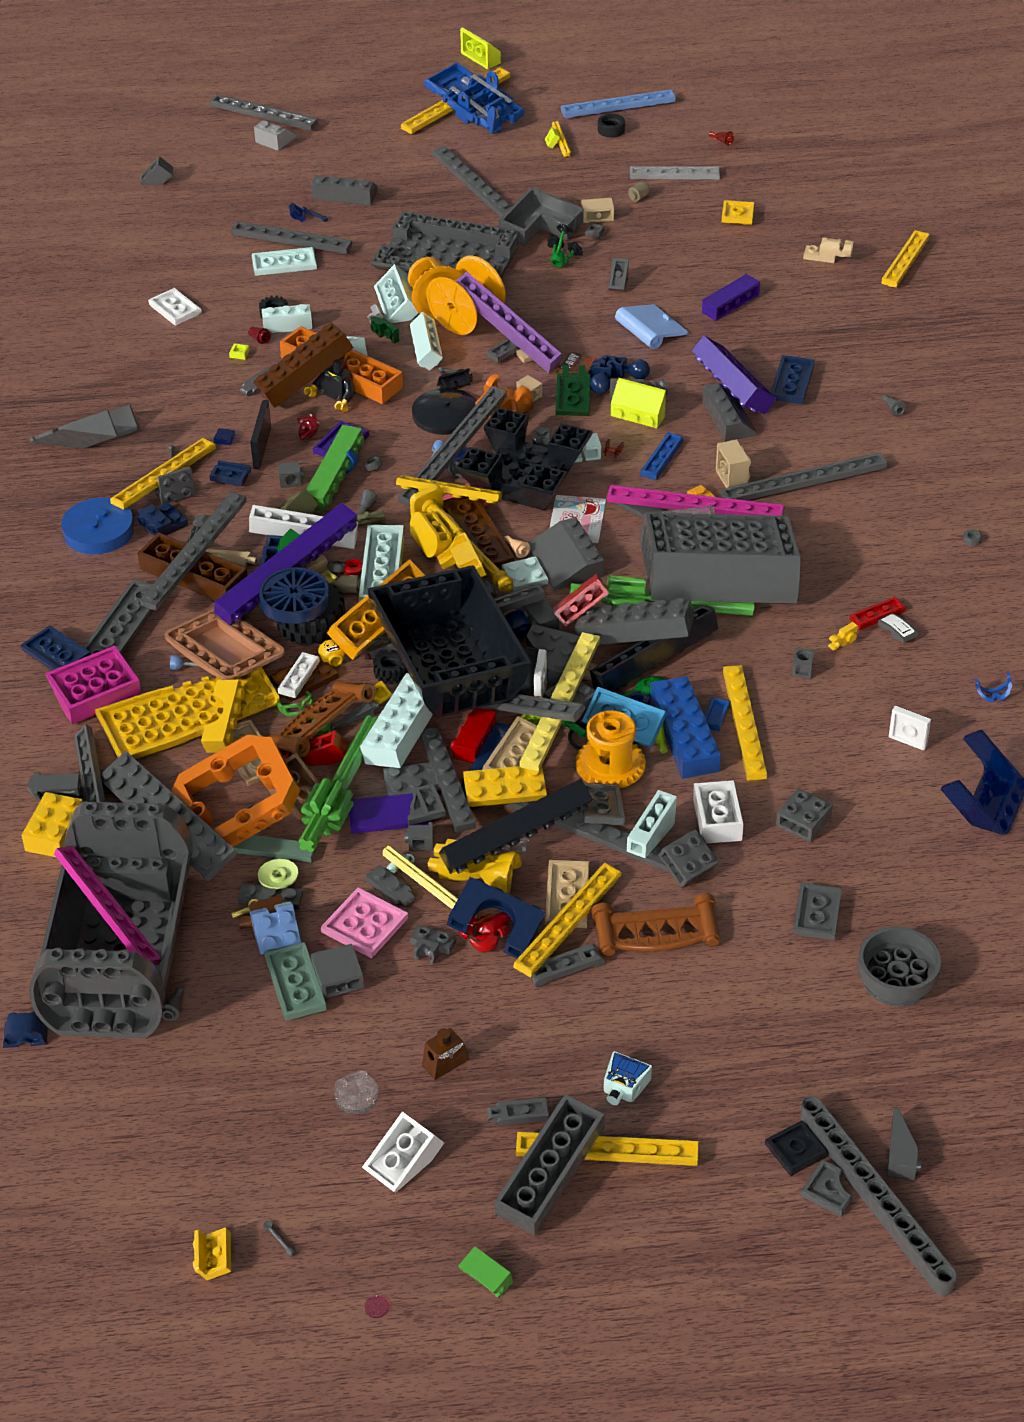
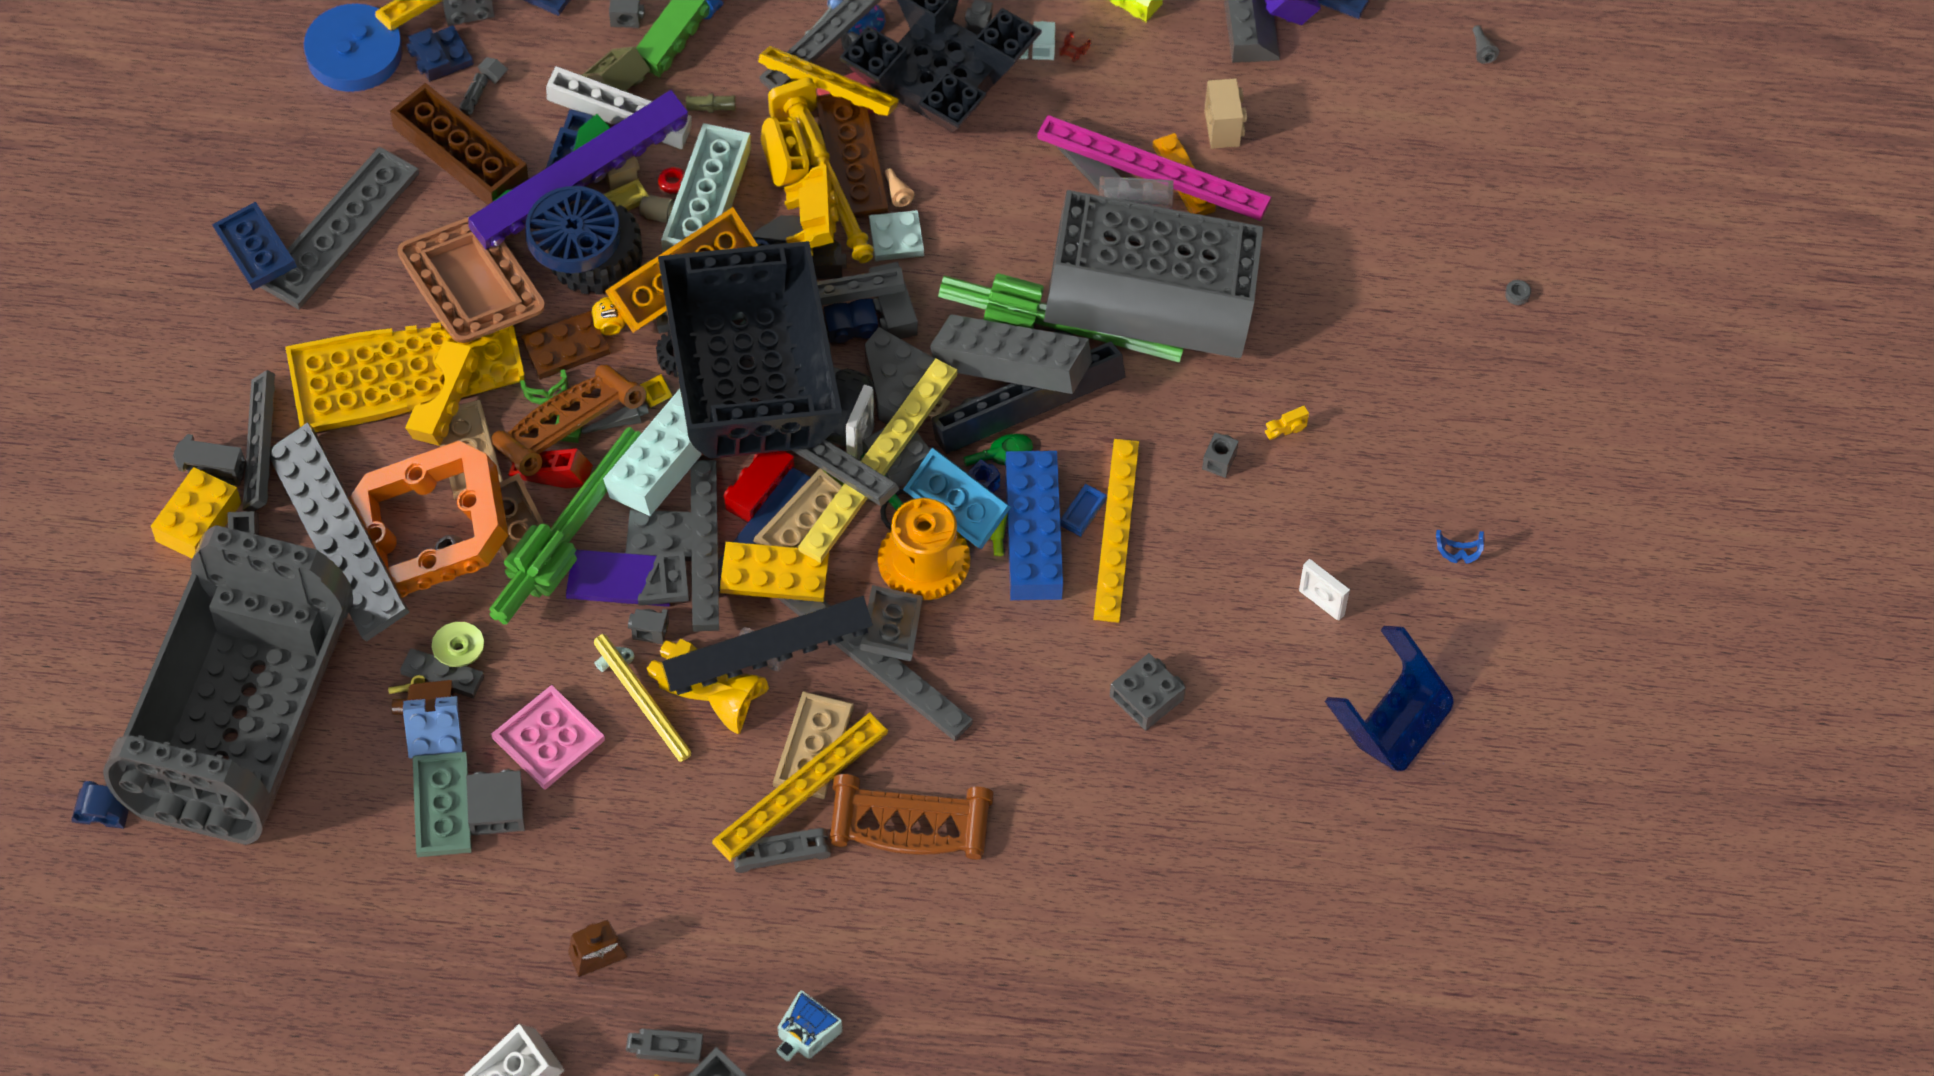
camera: 10 degrees right, 15 degrees up
(93, 683) = (290, 308): dark pink slope -> none
(105, 903) = (225, 667): dark pink plate -> none
(171, 1007) = (283, 811): dark grey cone -> none
(177, 662) = (407, 291): medium blue hinge -> none
(193, 551) = (463, 123): dark grey plate -> none
(238, 557) = (523, 134): tan bar -> none
(274, 848) = (461, 601): sand green tile -> none
(298, 675) = (556, 345): white tile -> none
(336, 566) = (649, 175): dark grey tile -> none
(356, 1092) = (478, 976): clear tile -> none
(368, 498) = (718, 73): dark grey cone -> none
(373, 463) = (741, 12): dark grey tile -> none
(390, 886) = (594, 688): dark grey hinge -> none
(431, 942) = (623, 782): dark grey plate -> none
(480, 896) = (693, 736): dark blue arch -> none
(490, 926) = (699, 775): red animal -> none
(567, 554) = (958, 216): dark grey slope -> none
(580, 600) = (948, 306): red brick -> none
(587, 510) = (992, 155): white sticker -> none
(653, 824) = (943, 673): light aqua slope -> none
(661, 456) = (1137, 72): blue tile -> none
(688, 858) = (977, 729): dark grey brick -> none
(718, 811) = (1035, 666): white brick -> none
(805, 478) = (1318, 149): dark grey plate -> none
(817, 911) = (1119, 838): dark grey plate -> none
(871, 615) = (1347, 391): red tile -> none
(898, 965) = (1189, 911): dark grey wheel -> none
(899, 628) = (1366, 422): slope -> none

